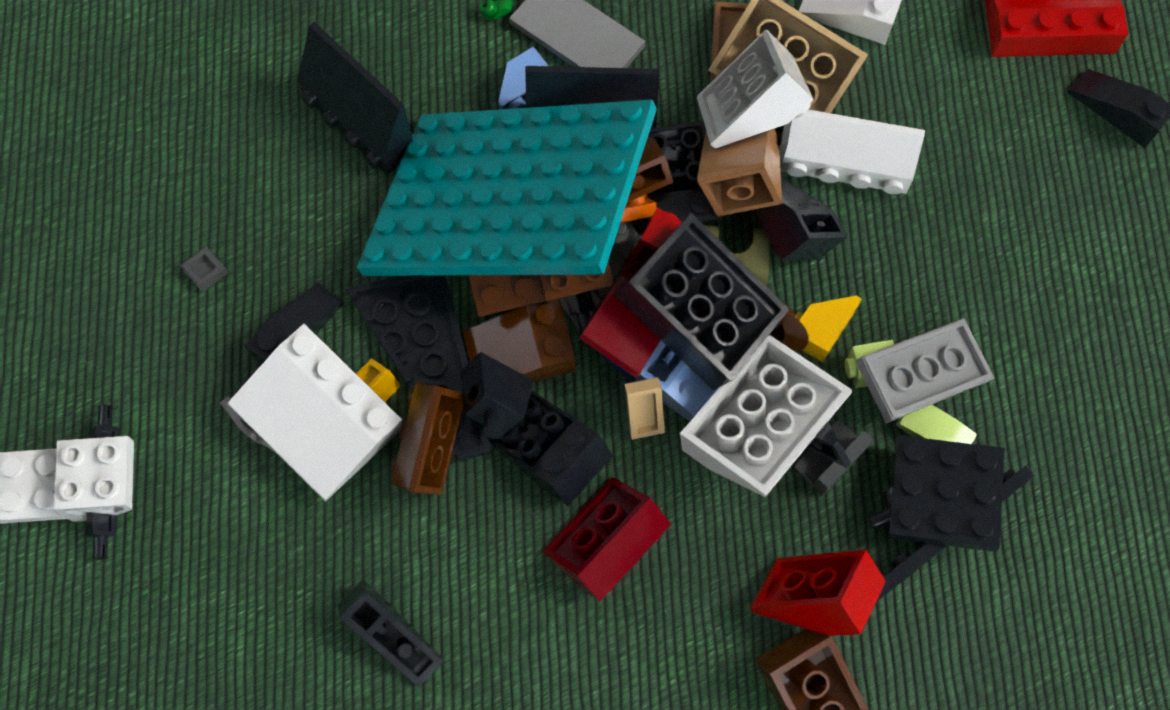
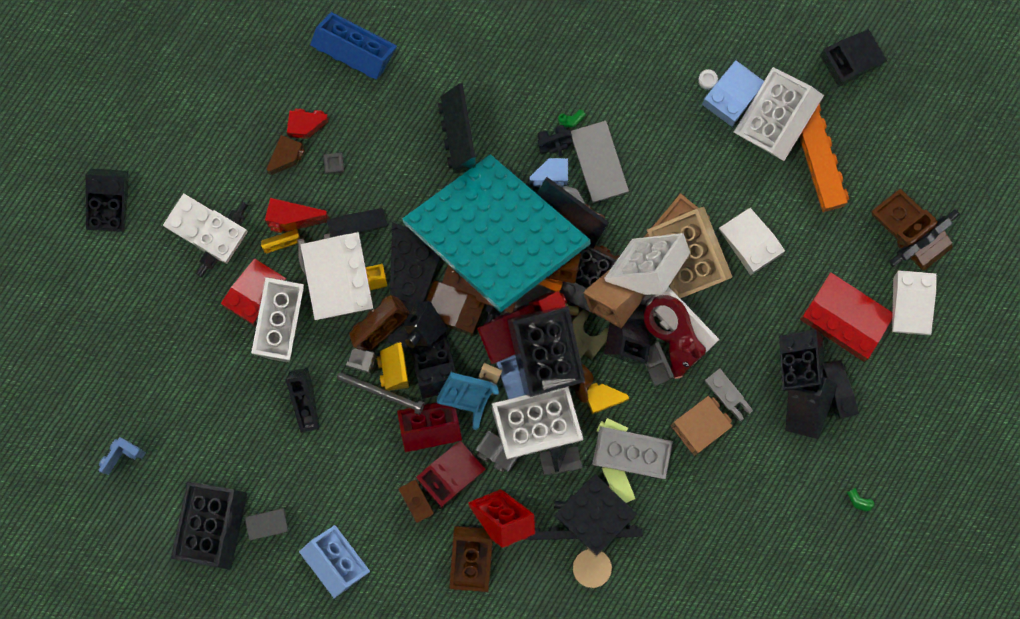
camera: 30 degrees right, 10 degrees up
(122, 301) = (285, 155): none -> reddish brown slope
(124, 99) = (353, 45): none -> blue slope
(124, 240) = (305, 124): none -> red slope
(190, 373) = (291, 216): none -> red slope
(197, 427) = (280, 241): none -> yellow slope
(202, 528) = (246, 293): none -> red slope
(267, 539) = (277, 319): none -> white slope
(438, 511) = (361, 360): none -> light grey panel
(494, 485) = (394, 368): none -> yellow slope
(499, 43) = (555, 142): none -> black hips
(502, 538) = (418, 407): none -> dark grey bar
(630, 450) = (467, 394): none -> dark azure piece
(671, 663) = (416, 501): none -> reddish brown brick
(690, 588) = (450, 473): none -> dark red slope
(731, 505) = (492, 450): none -> dark grey brick
(866, 232) = (658, 366): none -> dark grey panel
(876, 175) = (683, 343): none -> dark red animal
(983, 208) = (727, 393): none -> light grey hinge
(986, 272) = (701, 425): none -> medium nougat slope
(996, 579) = (592, 570): none -> tan tile
(1049, 89) = (801, 359): none -> black slope
(1102, 143) = (809, 408): none -> black slope

